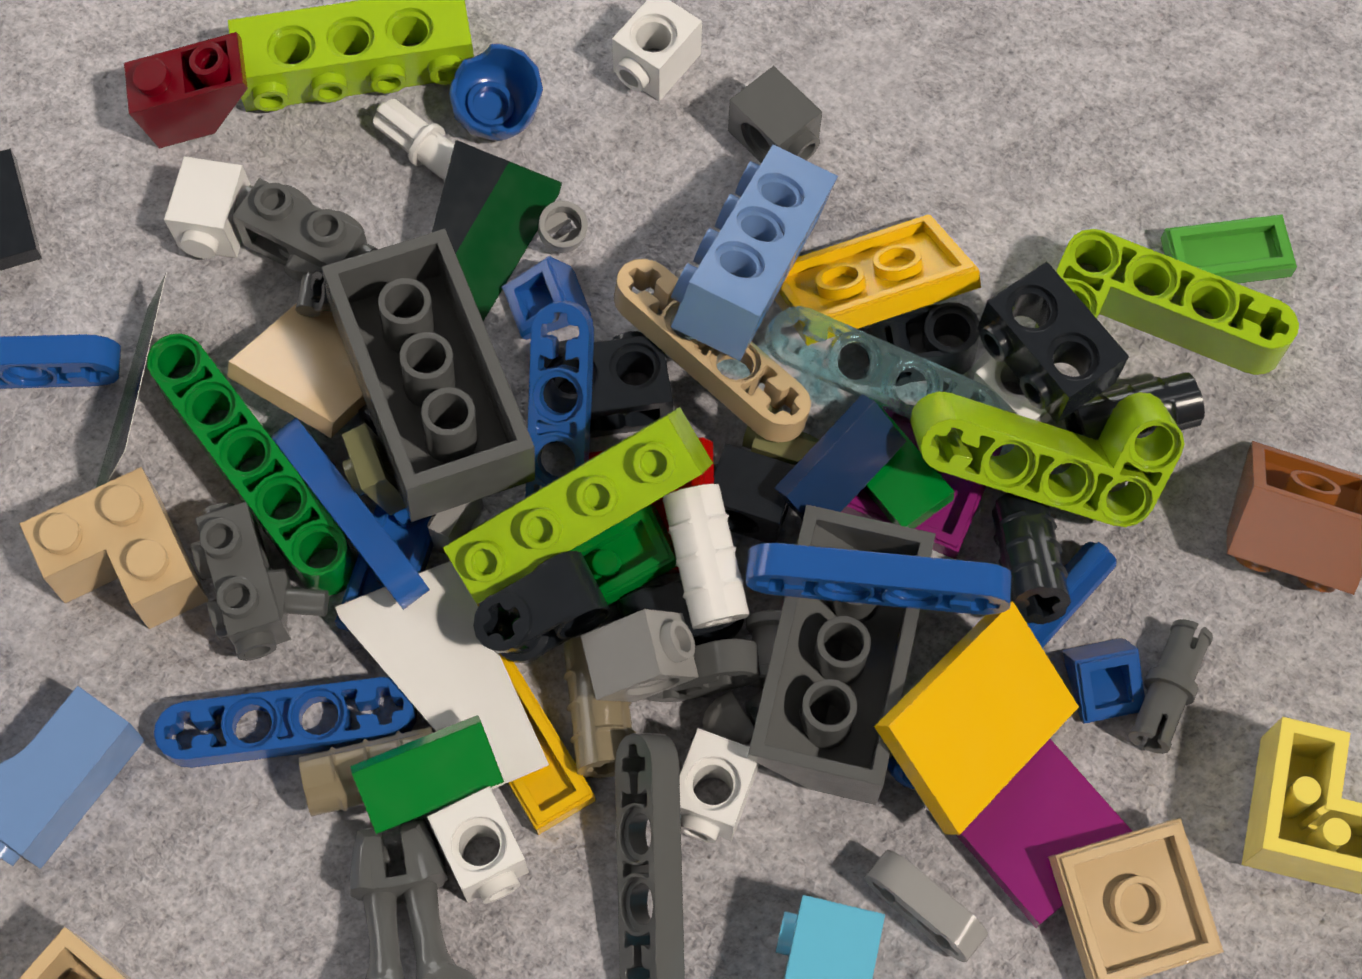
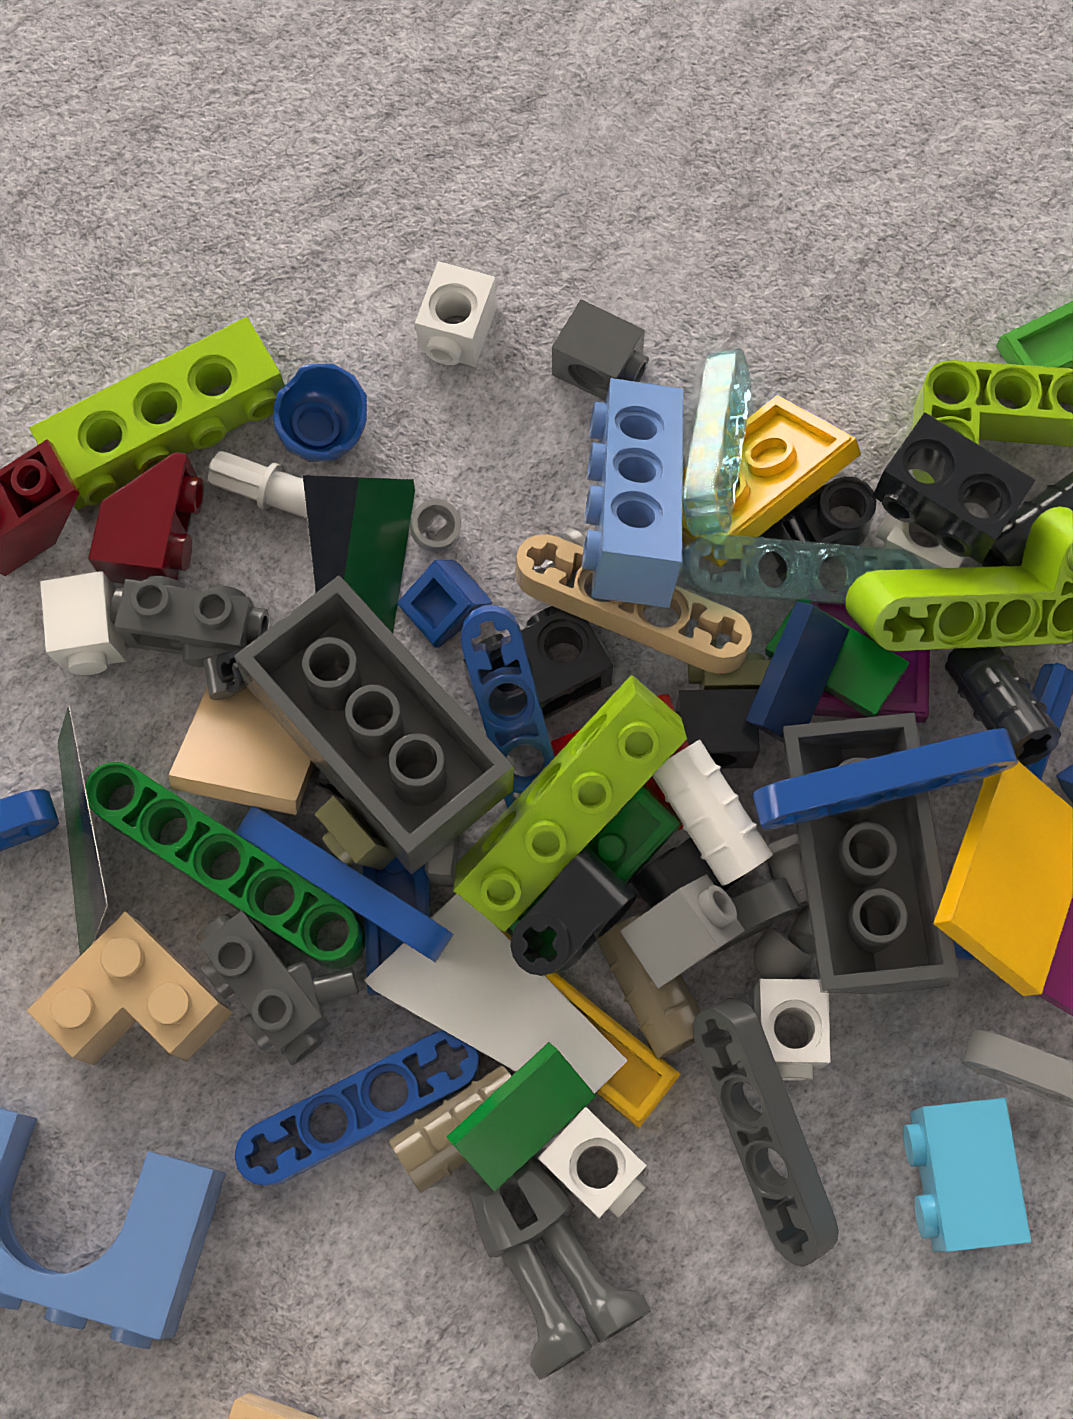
camera: 15 degrees left, 5 degrees up
(303, 139) = (147, 523): none -> dark red slope
(849, 233) = (717, 444): none -> clear light blue beam

